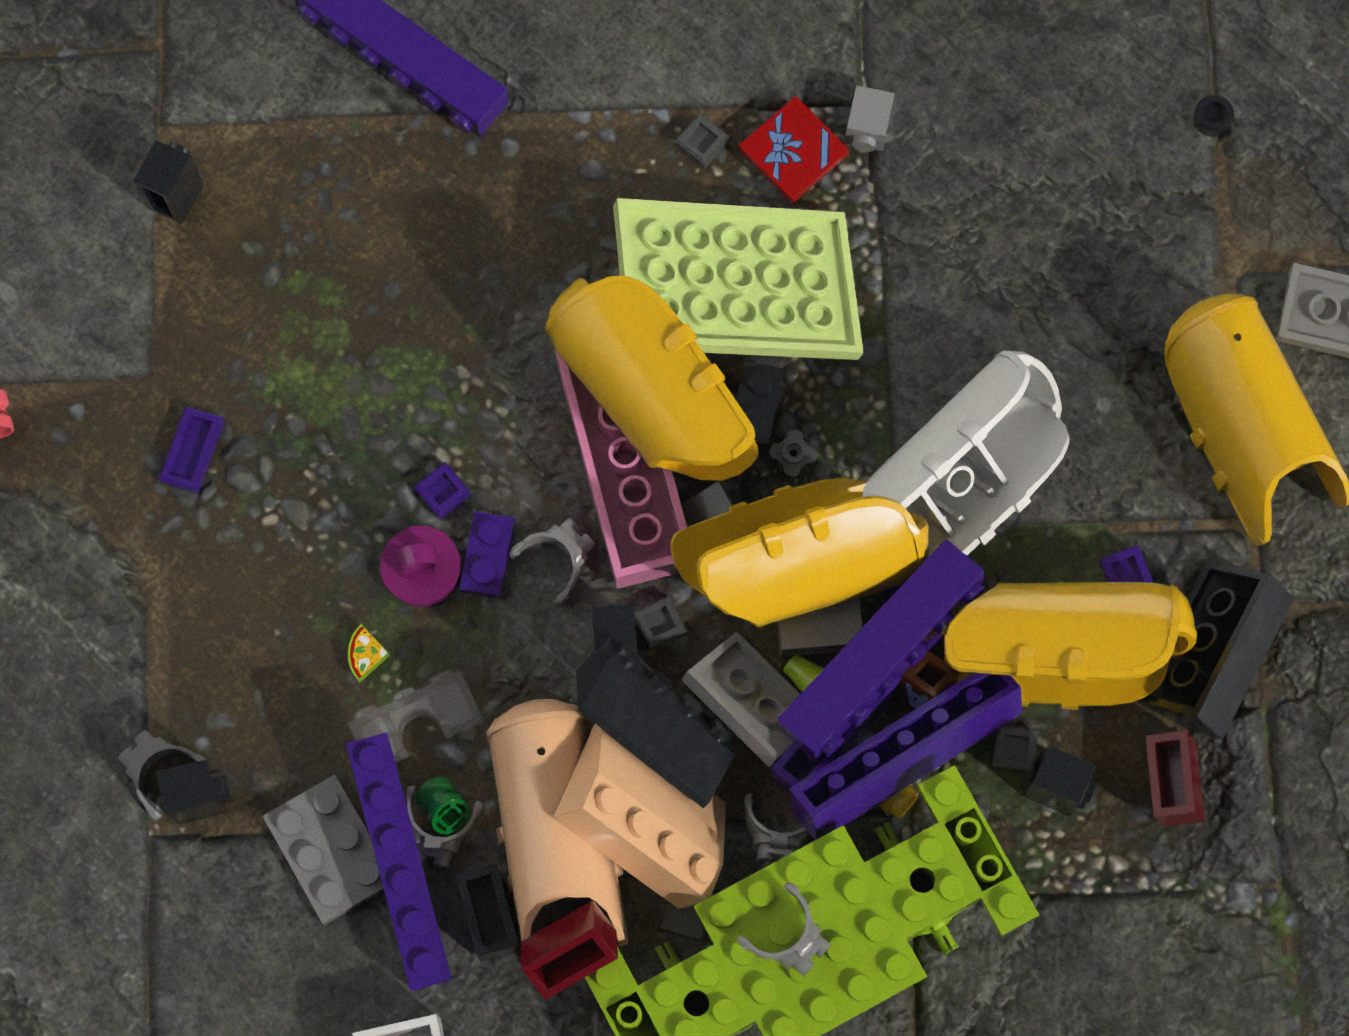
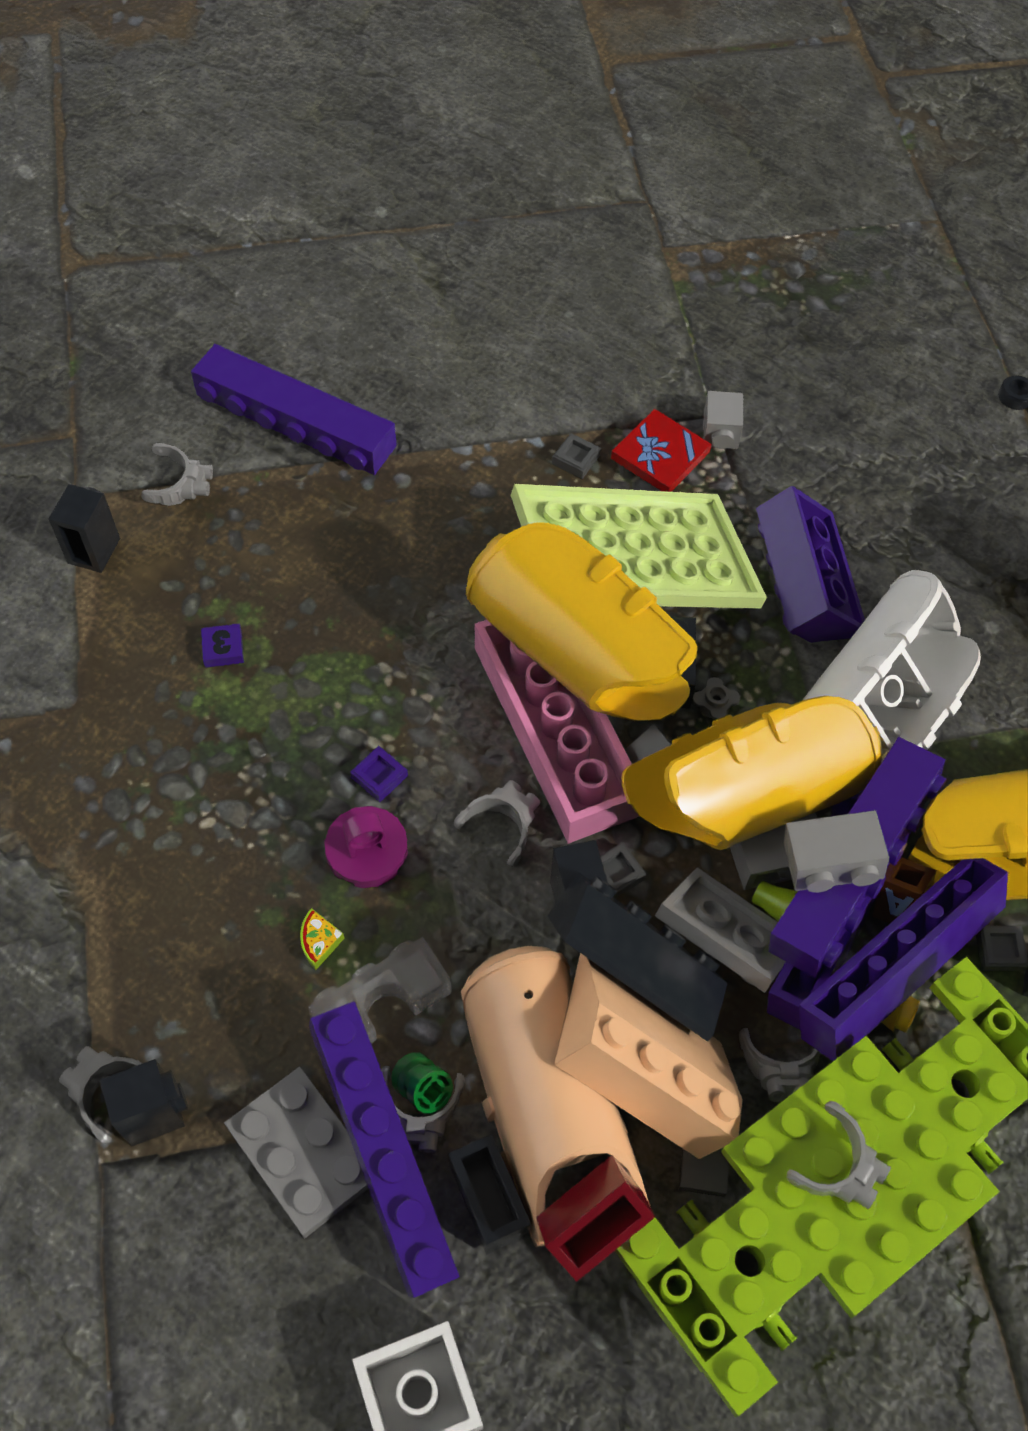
camera: 10 degrees left, 15 degrees down
(191, 450) = (122, 766): dark purple tile -> none
(285, 127) = (191, 484): none -> light grey helmet
(300, 328) = (222, 645): none -> dark purple tile
(487, 555) = (432, 828): dark purple plate -> none
(849, 653) = (836, 851): none -> light grey brick
(923, 315) = (809, 568): none -> dark purple slope

